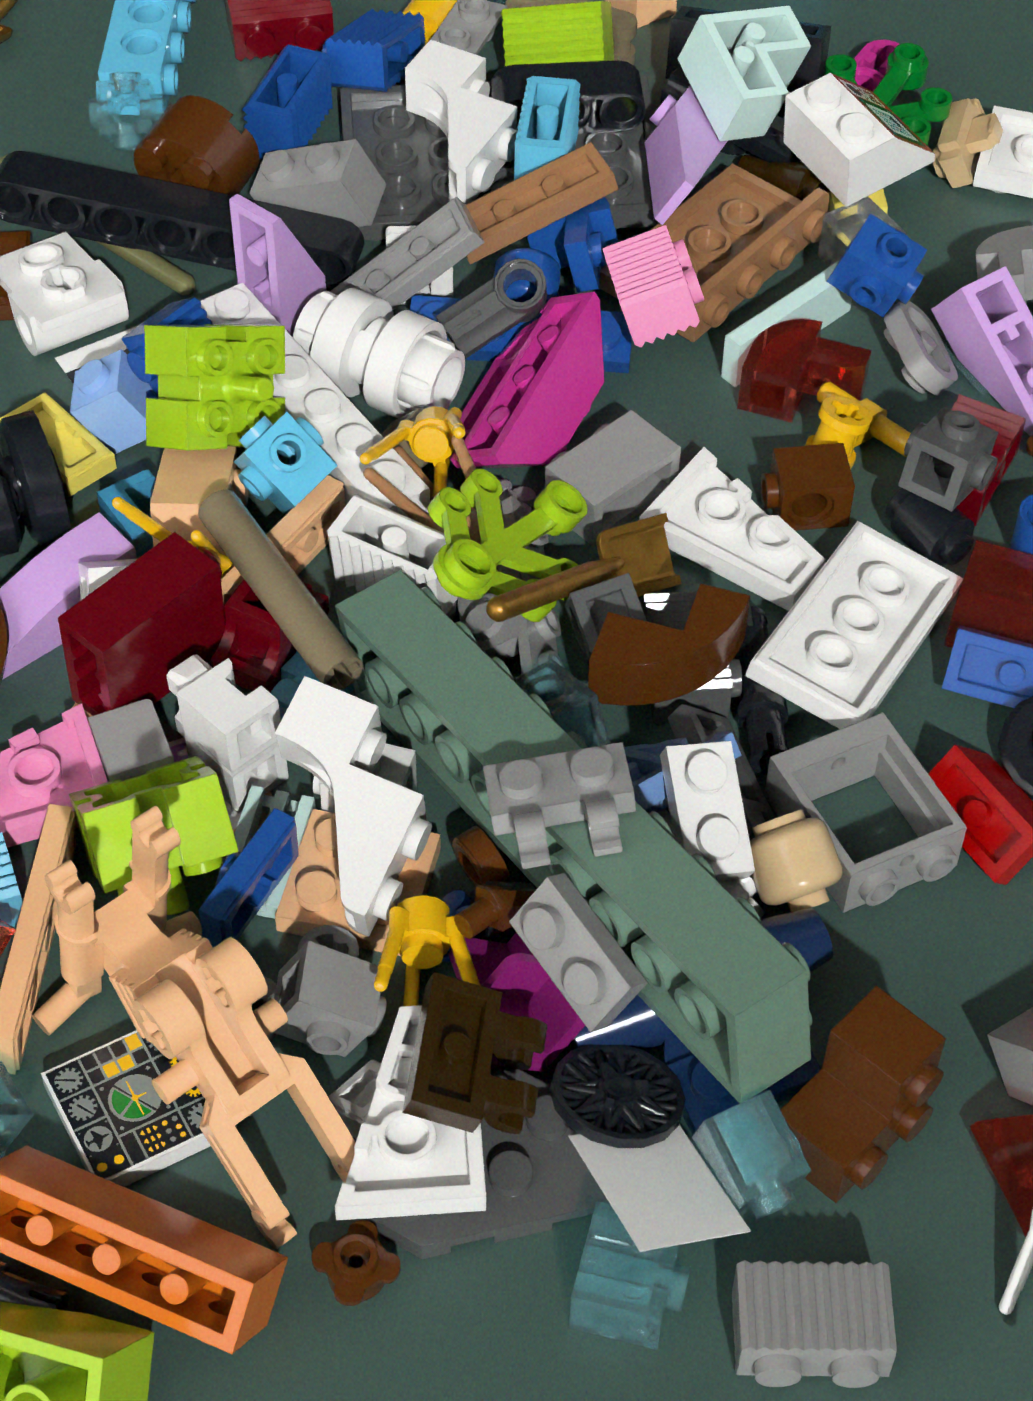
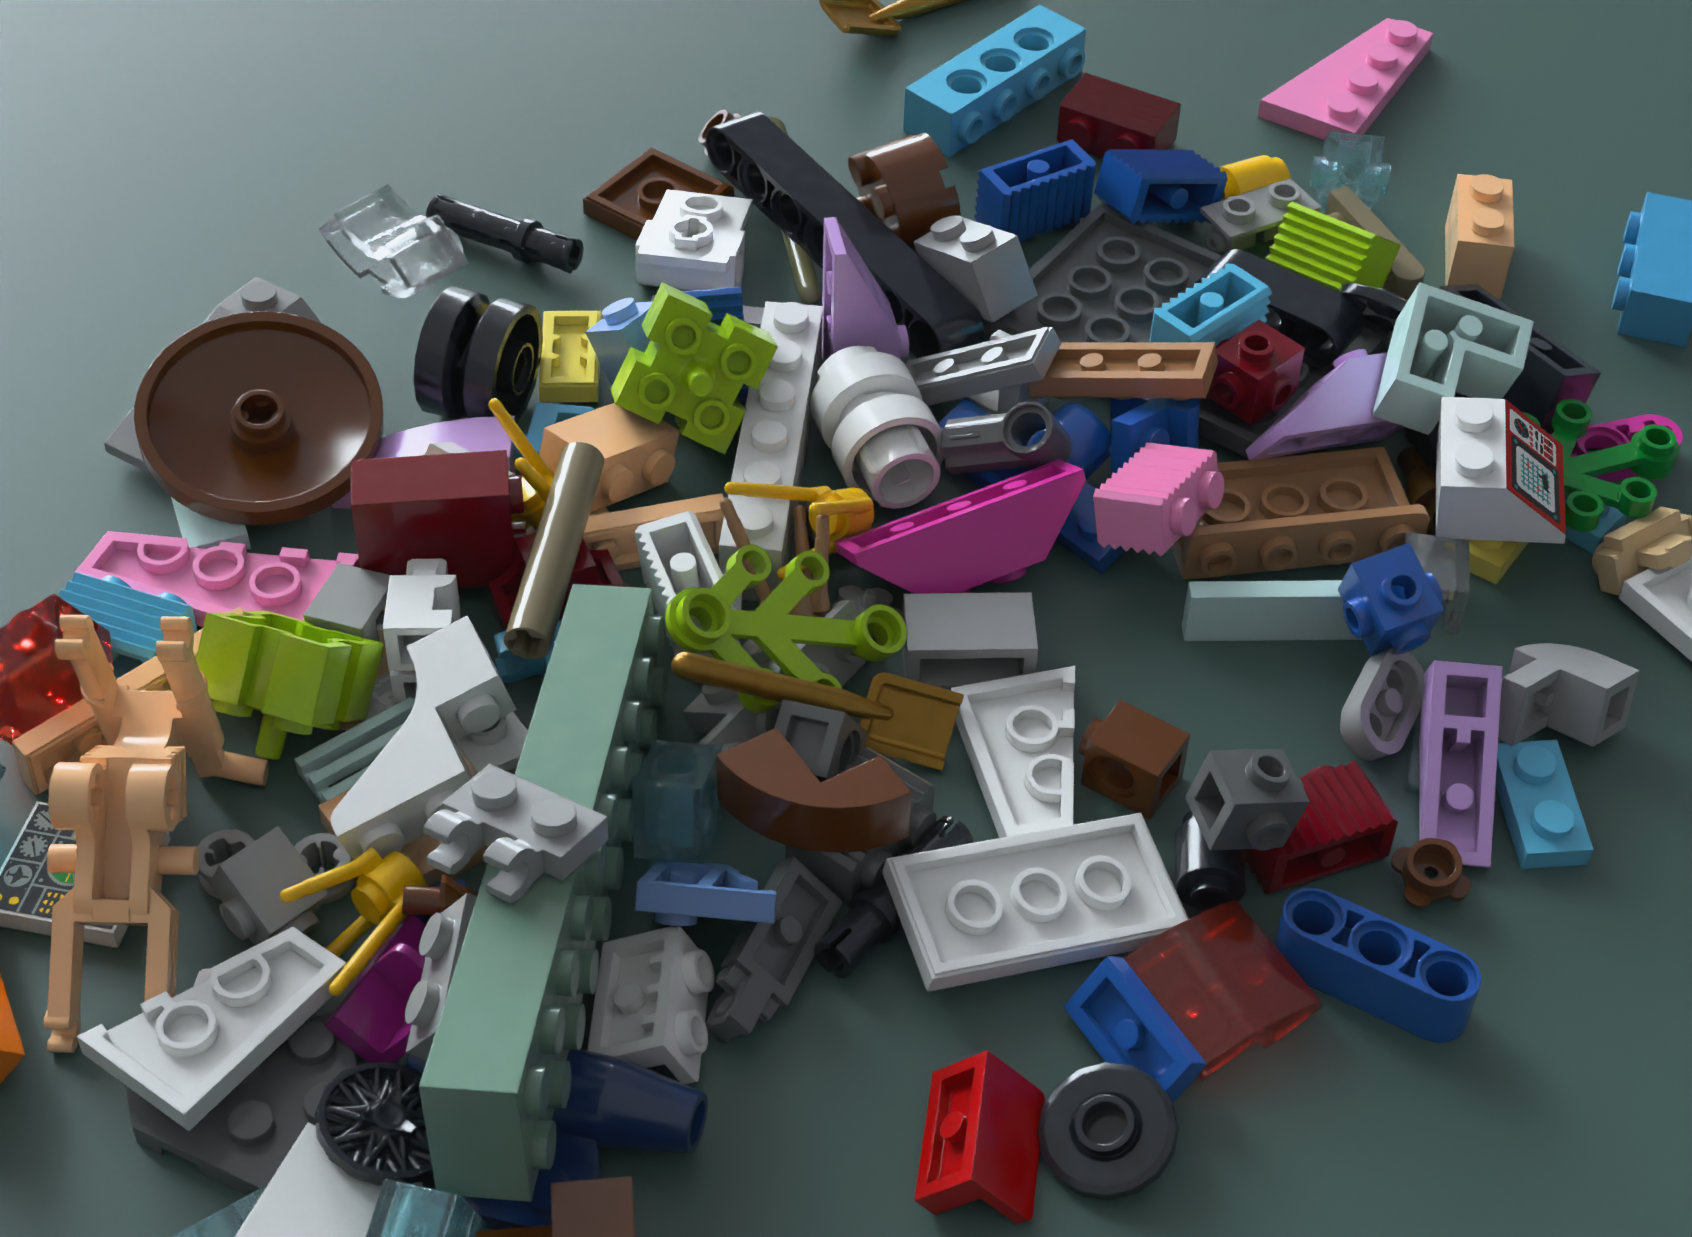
camera: 40 degrees right, 5 degrees down
(114, 95) = (897, 118): clear light blue brick -> none
(249, 878) = (309, 760): blue plate -> none
(303, 457) = (690, 477): medium azure brick -> none
(361, 1283) = (82, 1120): reddish brown plate -> none
(454, 94) = (1176, 248): white arch -> none
(454, 1054) = (268, 983): dark brown plate -> none
(619, 143) = (1256, 372): none -> dark red brick
(649, 56) = (1376, 303): none -> black wheel
(708, 806) = (684, 946): white plate -> none
(794, 861) = (733, 1044): tan head -> none
(796, 361) = (1237, 644): clear red brick -> none
(852, 756) = (843, 989): light grey window -> none
(854, 422) = (1230, 722): yellow piece -> none

